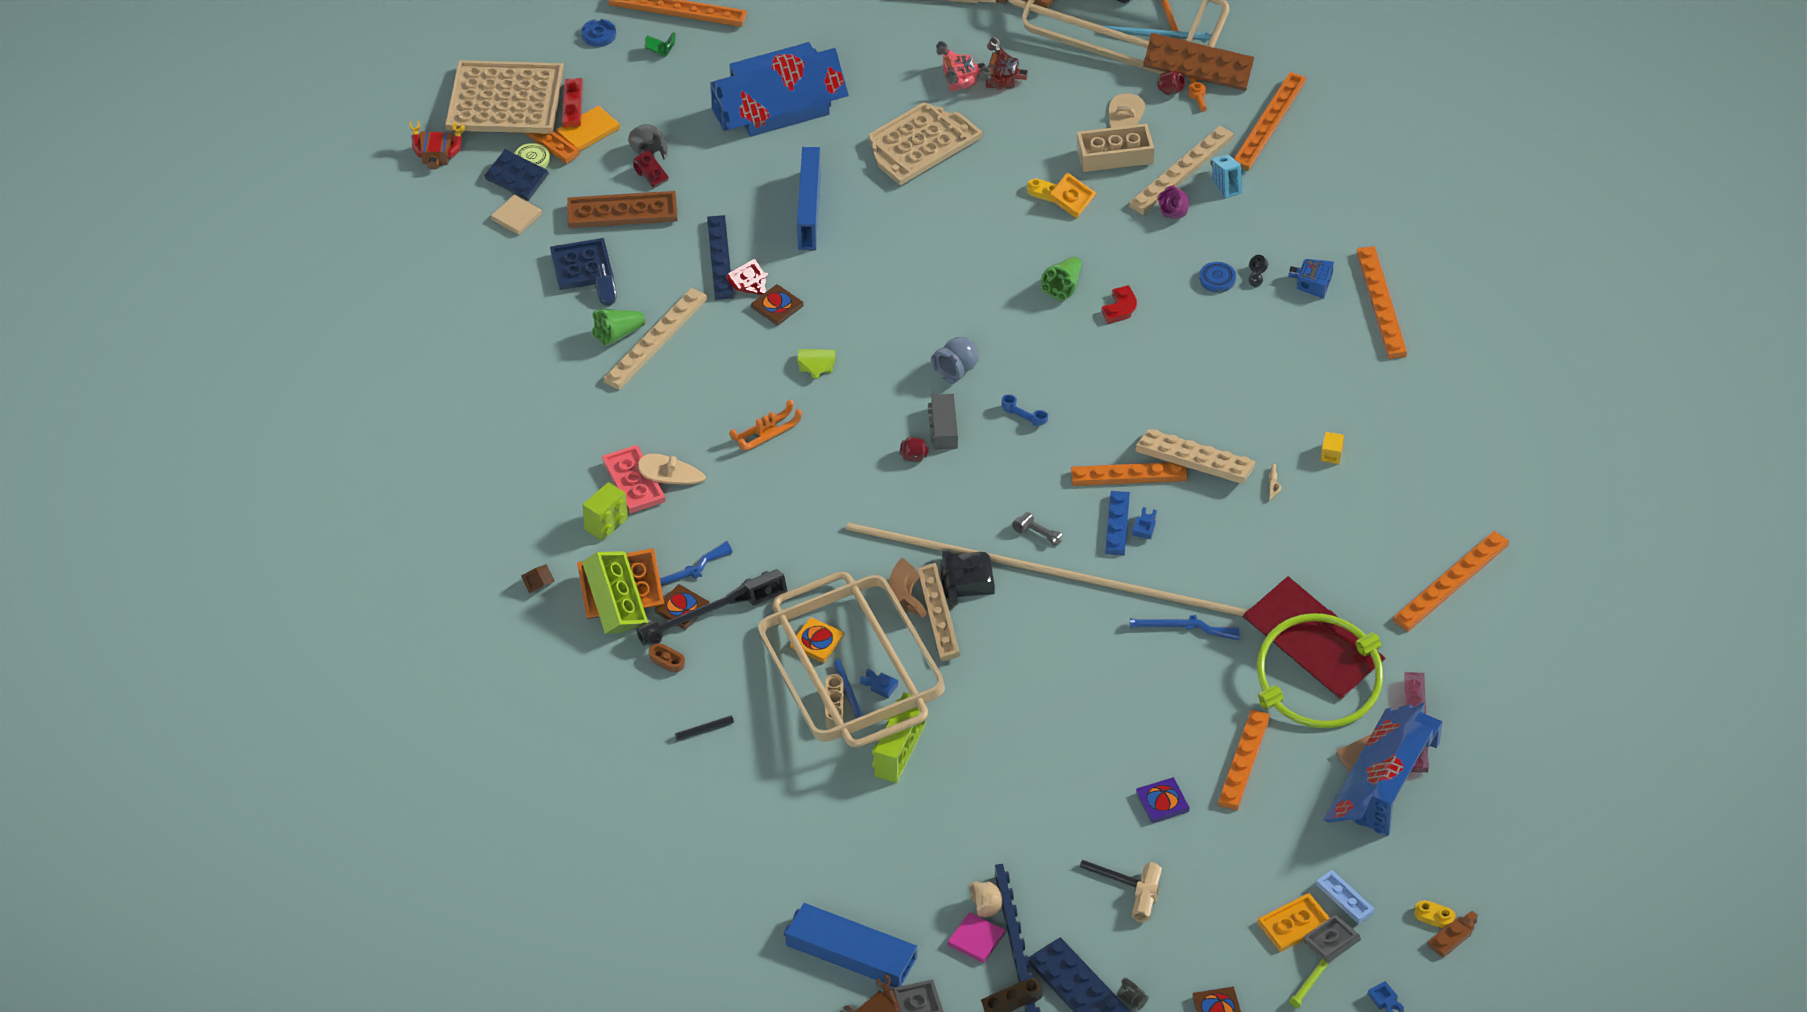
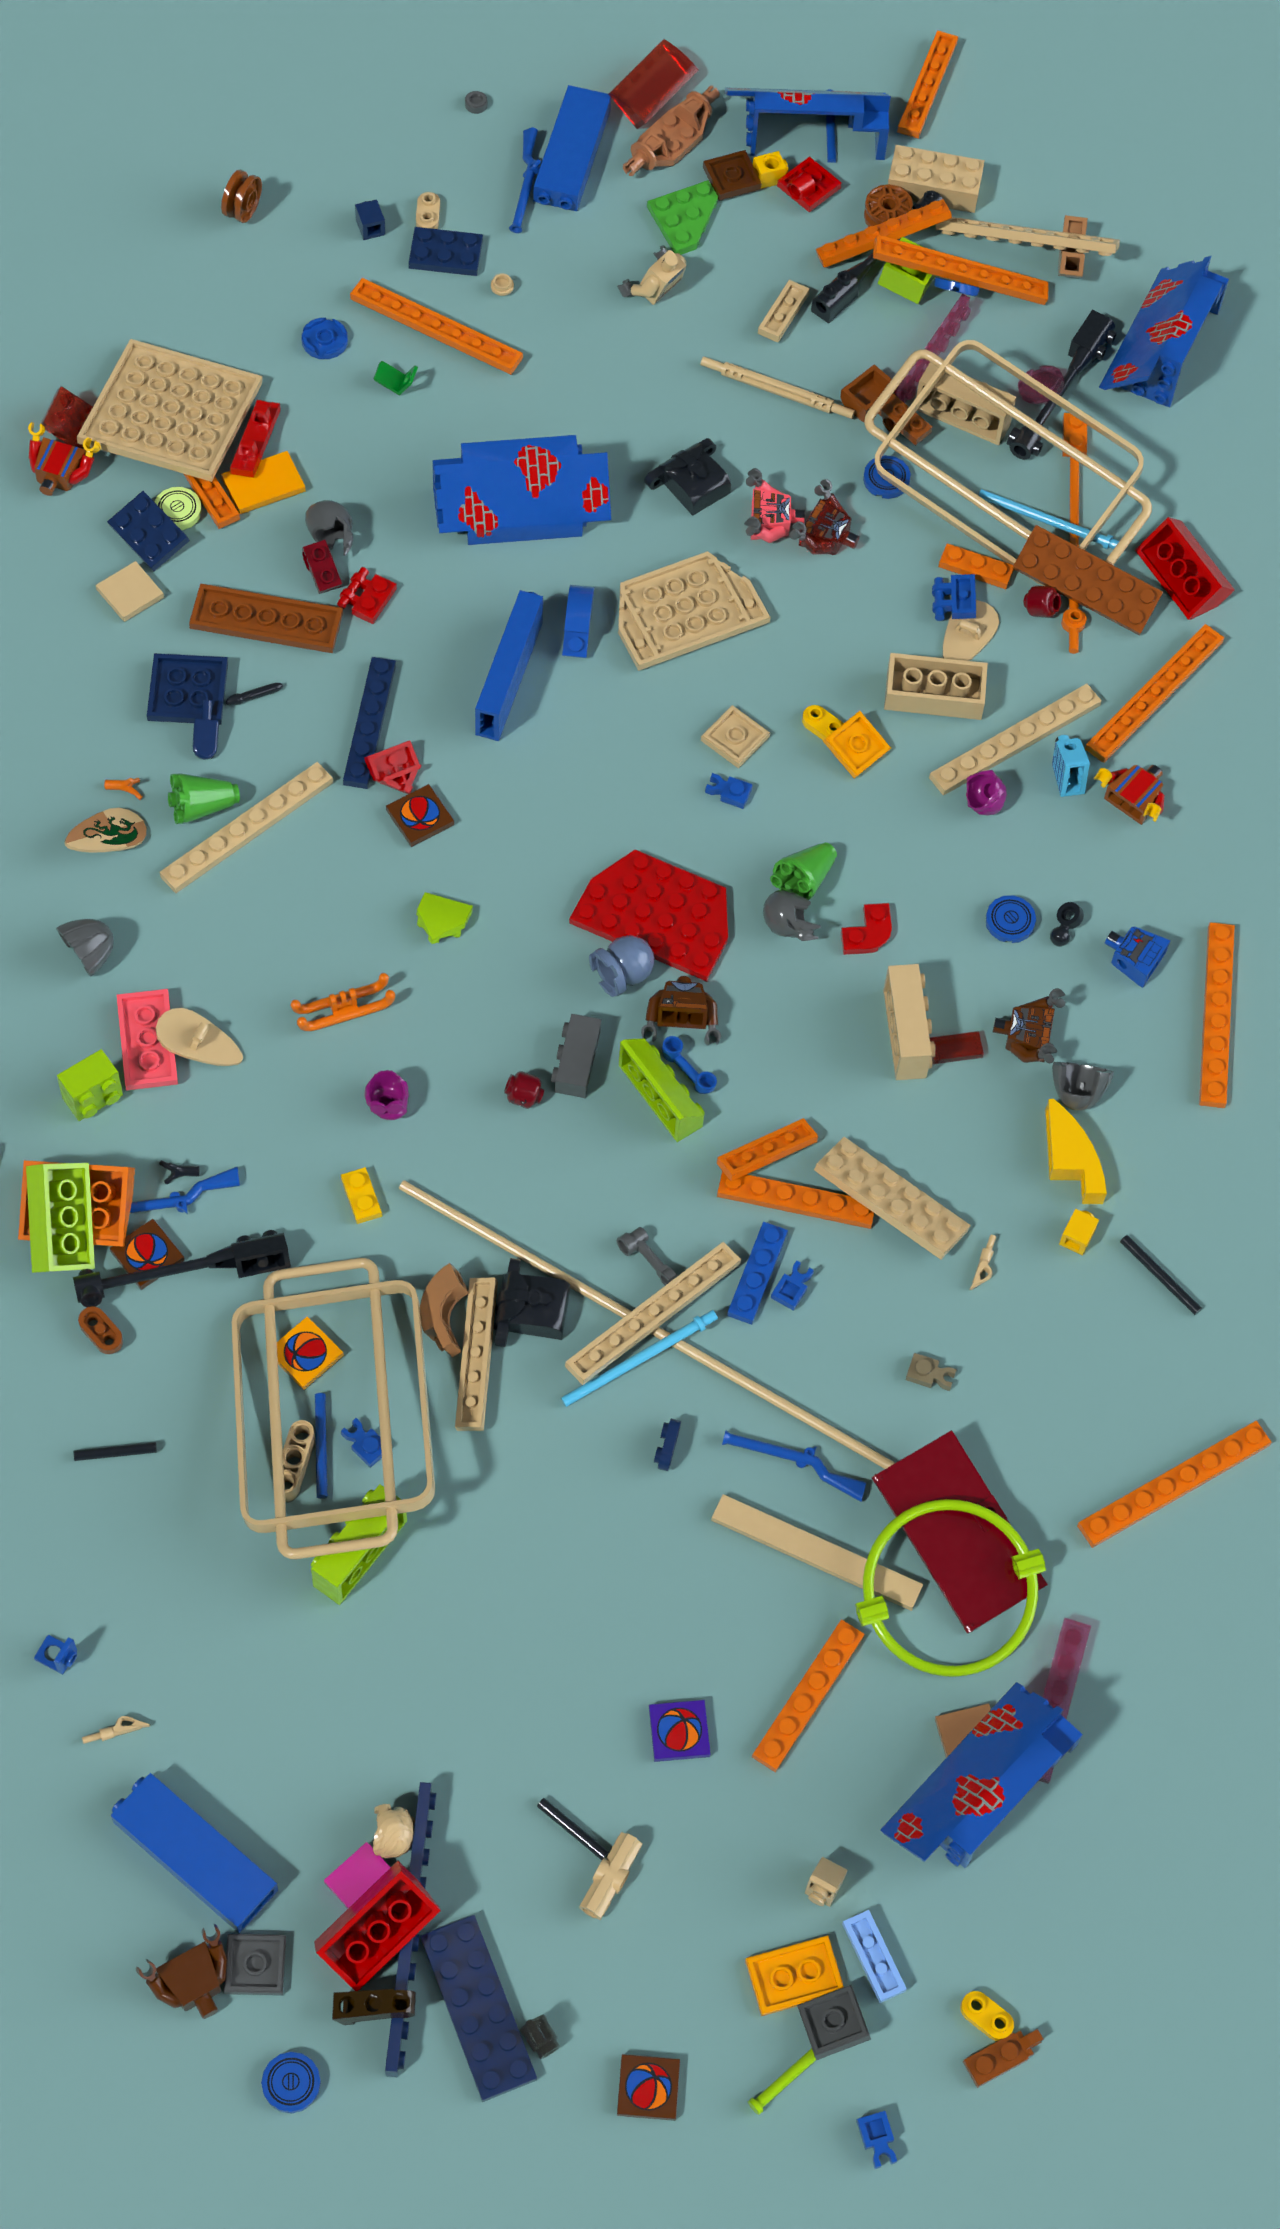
camera: 10 degrees right, 15 degrees up
(431, 115) = (66, 416): none -> clear red plate
(557, 332) = (124, 785): none -> orange bar
(558, 360) = (107, 832): none -> shield
(573, 423) = (90, 940): none -> dark grey hair
(636, 254) = (237, 699): none -> black piece
(685, 552) = (179, 1171): none -> black bar
(694, 181) = (372, 600): none -> red plate
(716, 853) = (64, 1658): none -> blue bracket
(769, 889) = (116, 1730): none -> tan hand
(818, 472) = (387, 1095): none -> magenta hair
(821, 539) = (361, 1195): none -> yellow plate
(848, 163) = (578, 621): none -> blue arch
(896, 60) = (692, 477): none -> black piece
(983, 210) = (735, 736): none -> tan tile
(983, 320) = (662, 904): none -> red plate
(993, 243) = (732, 791): none -> blue plate
(997, 952) = (376, 1926): none -> red slope
(1008, 374) = (682, 1006): none -> reddish brown torso
(1009, 427) = (660, 1088): none -> lime slope
(1028, 38) = (877, 485): none -> blue tile
(1054, 559) = (652, 1313): none -> tan plate
(1059, 307) = (785, 915): none -> dark grey helmet
(1088, 558) = (697, 1324): none -> medium azure bar
(1093, 640) = (670, 1433): none -> dark blue plate
(1098, 446) = (767, 1149): none -> orange plate
(1114, 93) = (962, 597): none -> blue plate
(1116, 73) = (969, 562): none -> orange plate
(1169, 348) = (908, 1022): none -> tan brick
(1207, 360) = (957, 1047): none -> clear red tile
(1215, 675) = (814, 1551): none -> tan tile
(1255, 335) = (1030, 1028): none -> torso
(1257, 554) = (926, 1371): none -> dark tan plate
(1263, 42) = (1184, 569): none -> red slope
(1276, 181) = (1134, 791): none -> torso
(1296, 861) = (825, 1882): none -> tan slope
(1302, 362) = (1080, 1085): none -> dark grey hair
(1312, 403) = (1072, 1154): none -> yellow slope
(1398, 462) = (1161, 1275): none -> black bar

